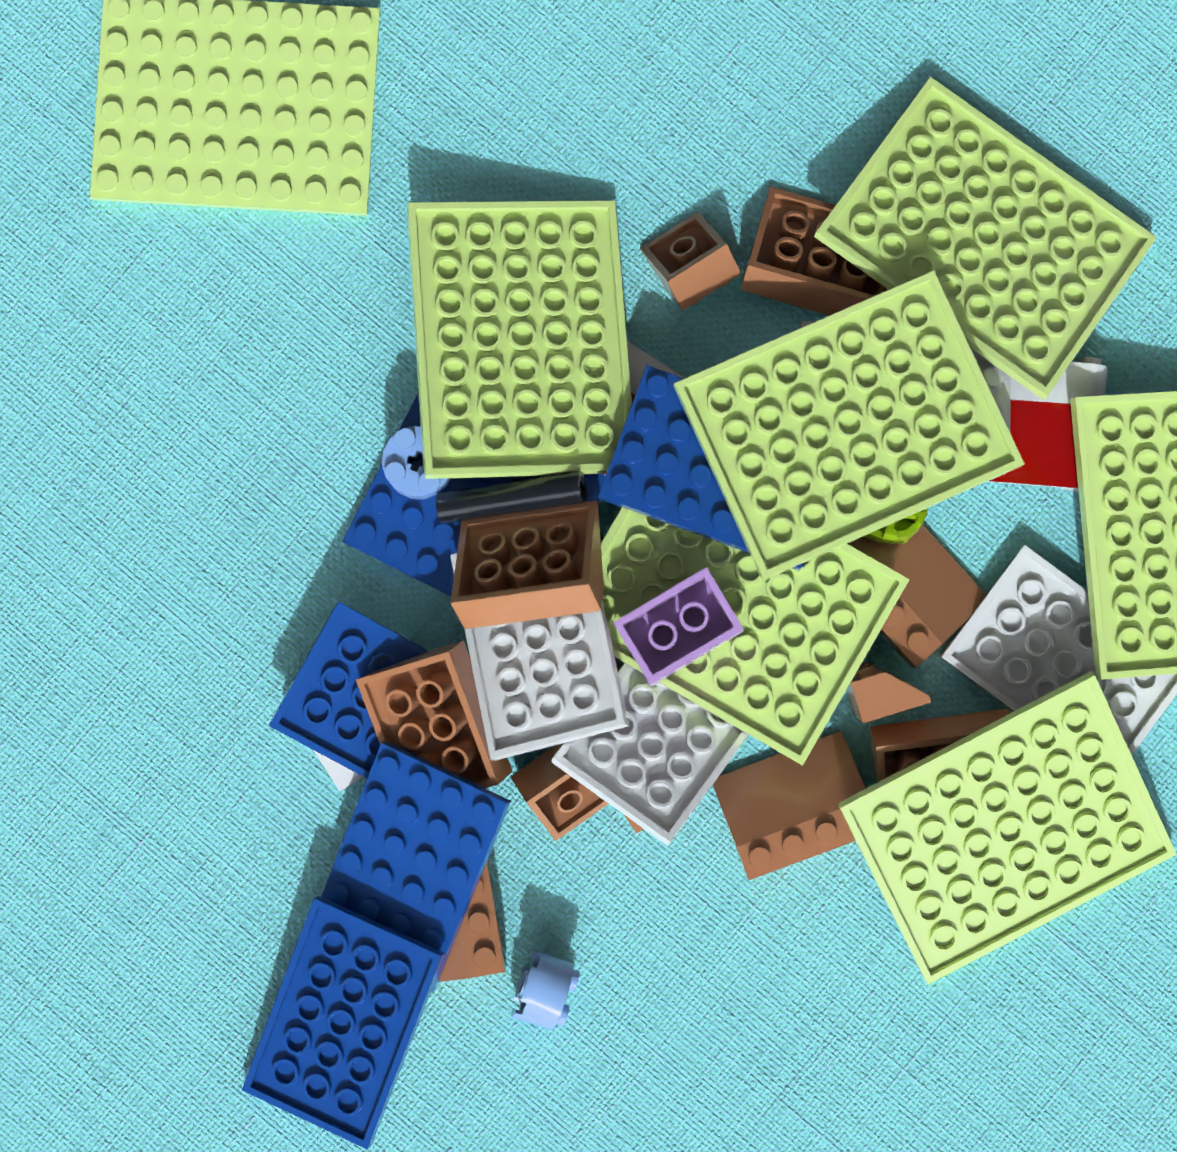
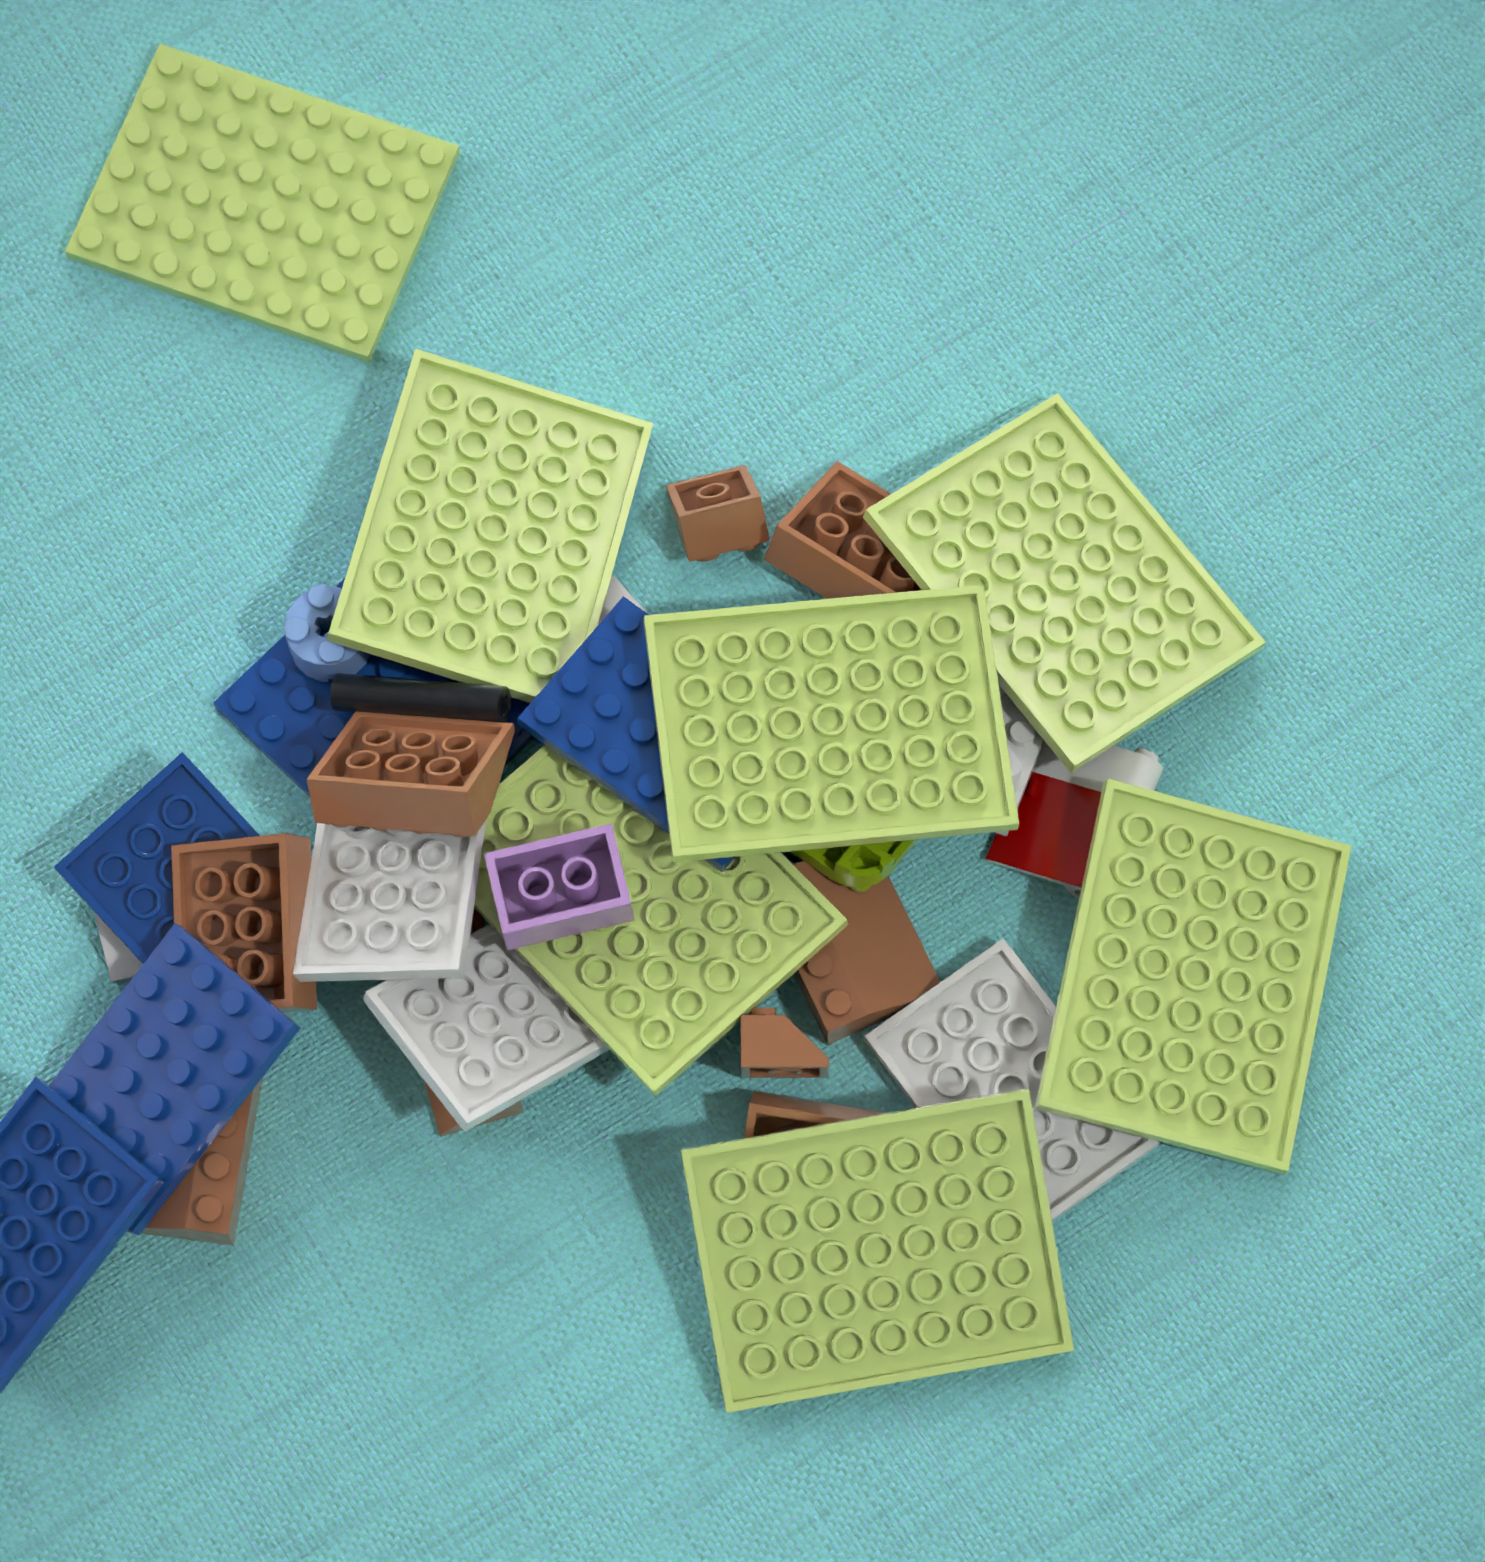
camera: 20 degrees right, 15 degrees down
(544, 990) = (266, 1273): light blue brick -> none
(555, 795) = (363, 1060): nougat slope -> none
(789, 809) = (622, 1155): nougat slope -> none

